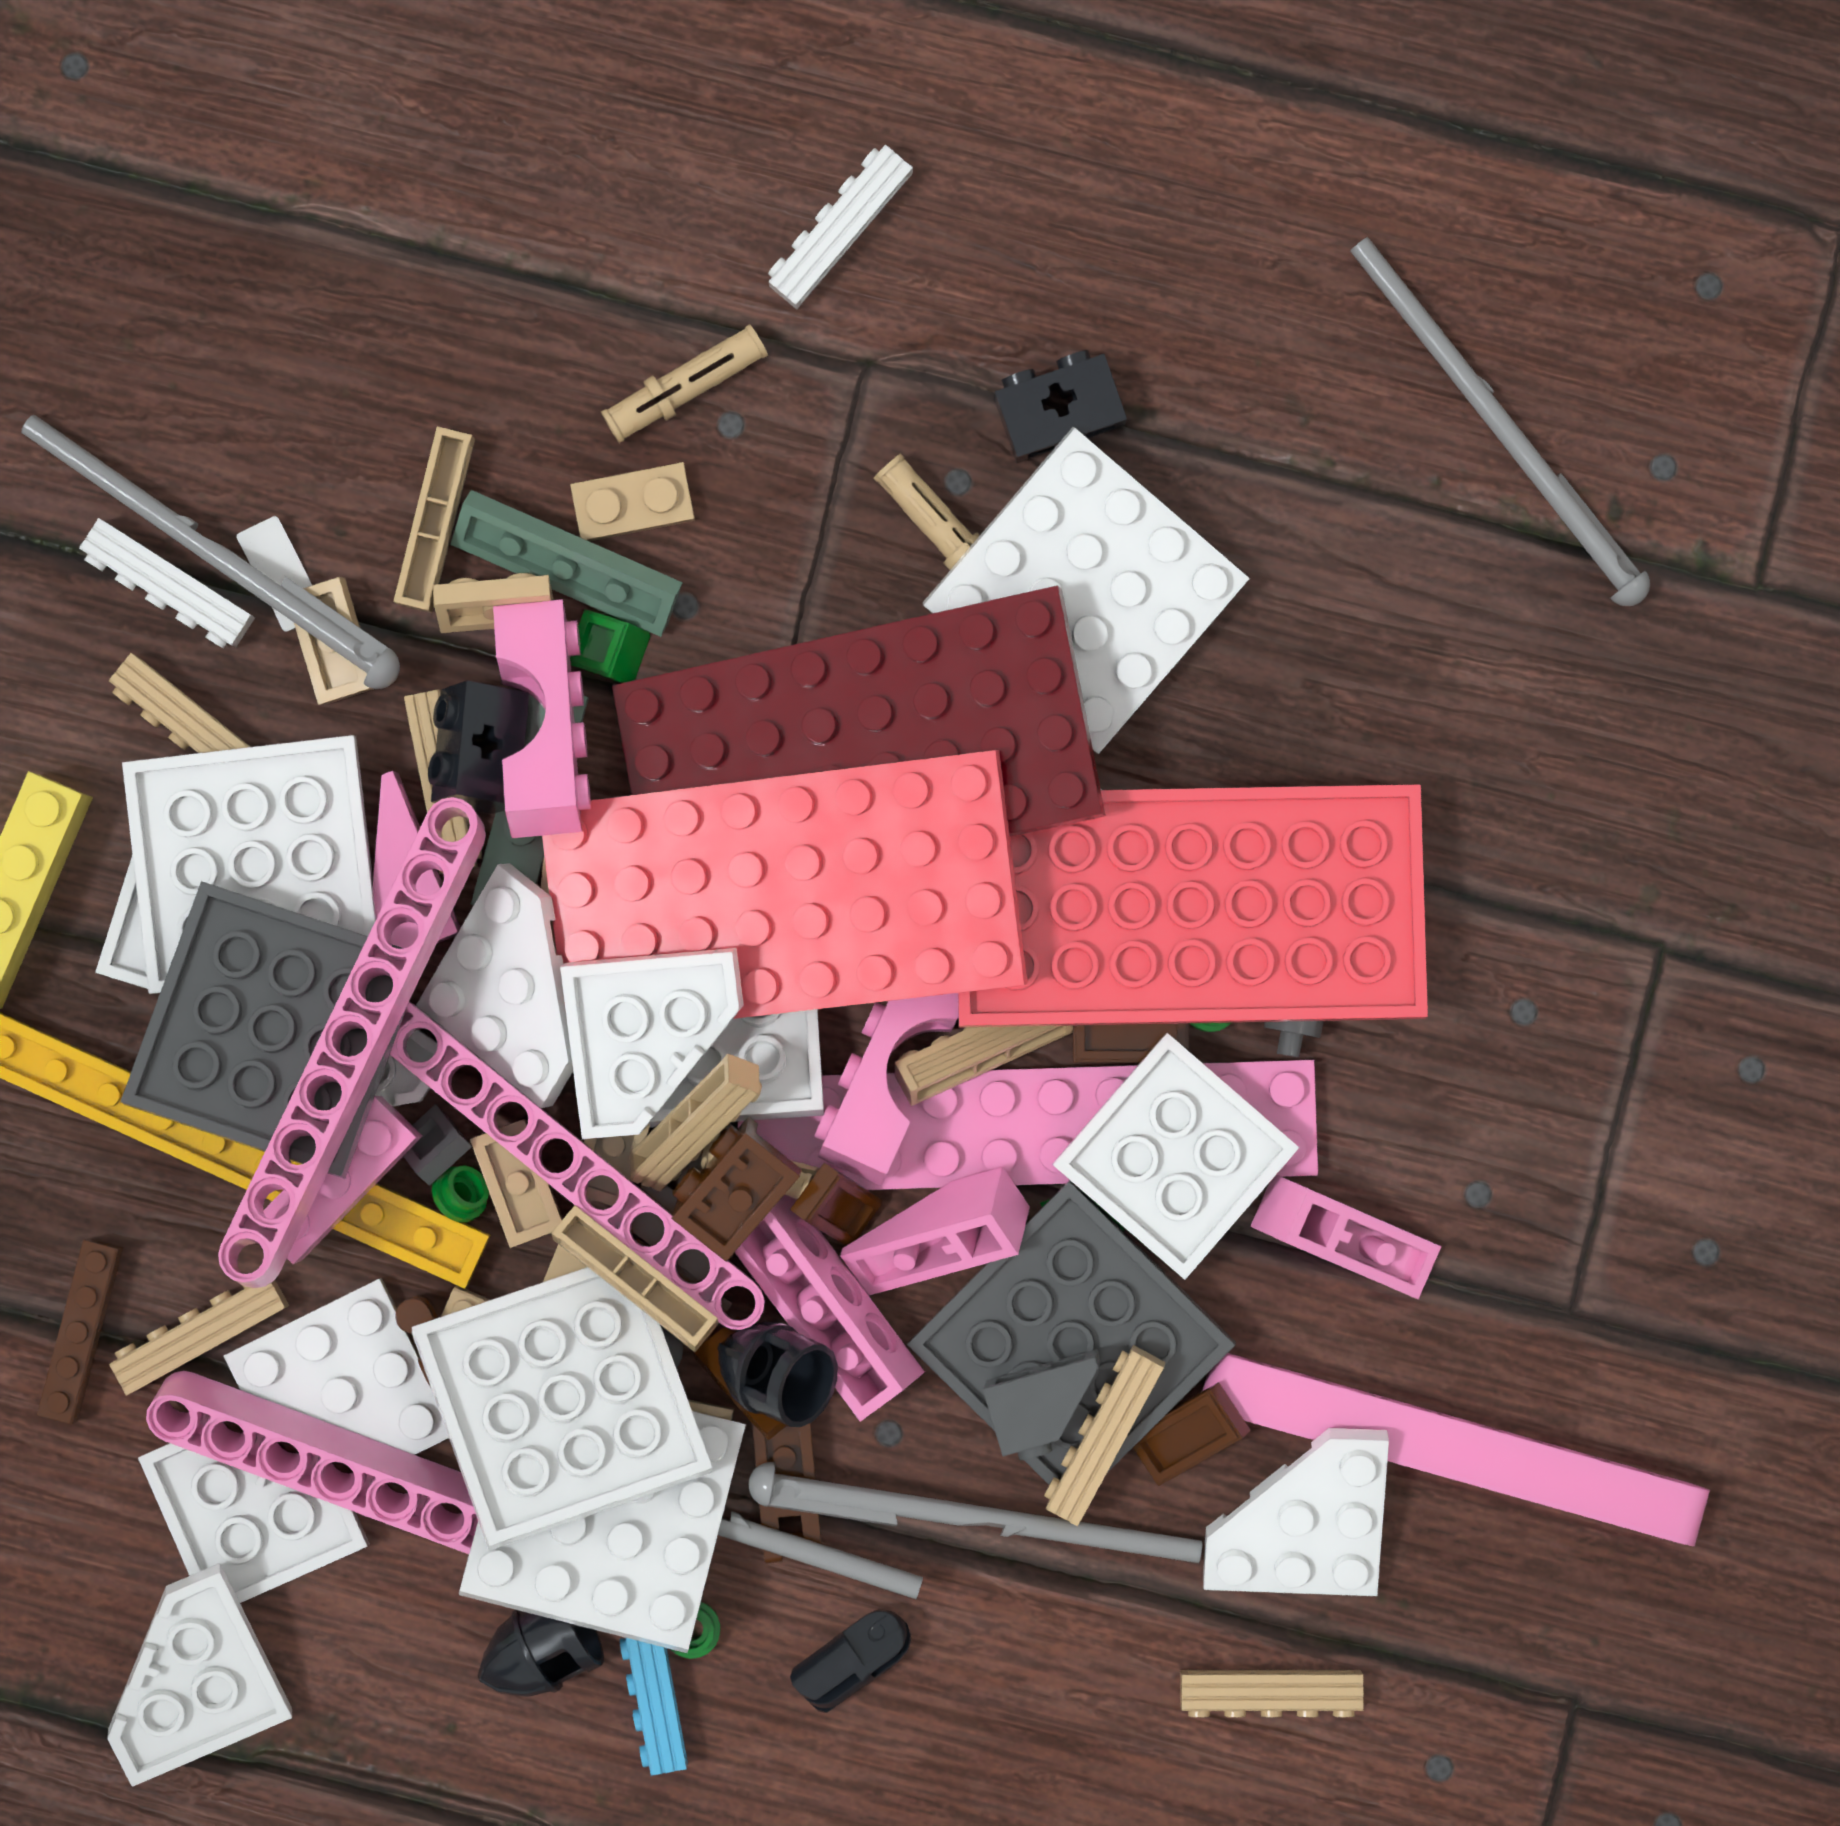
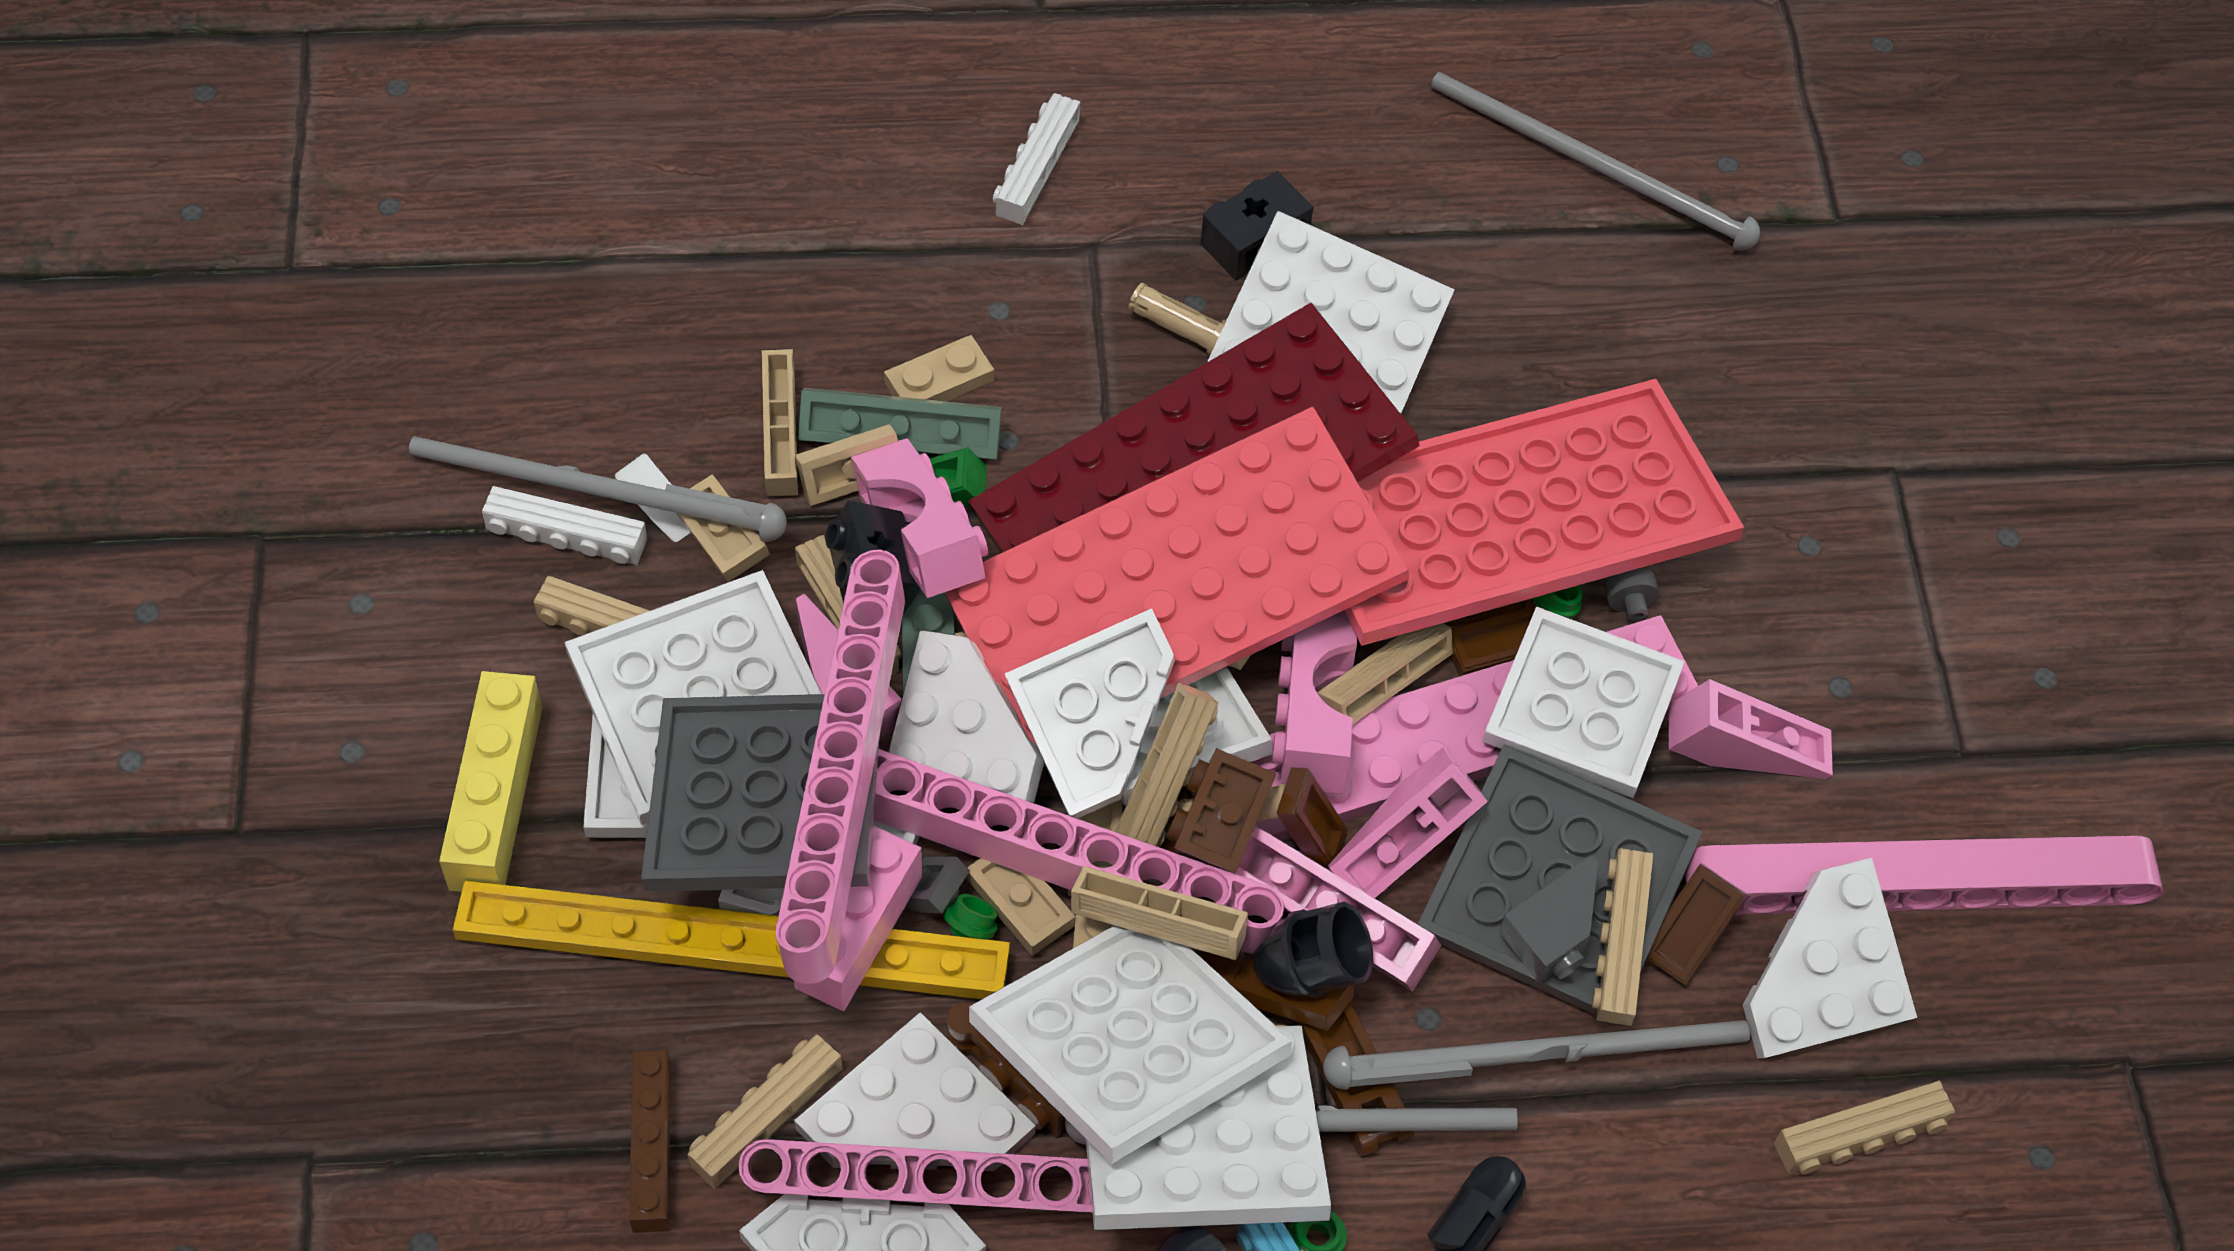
camera: 20 degrees left, 30 degrees down
(624, 419) = (938, 295): tan pin -> none

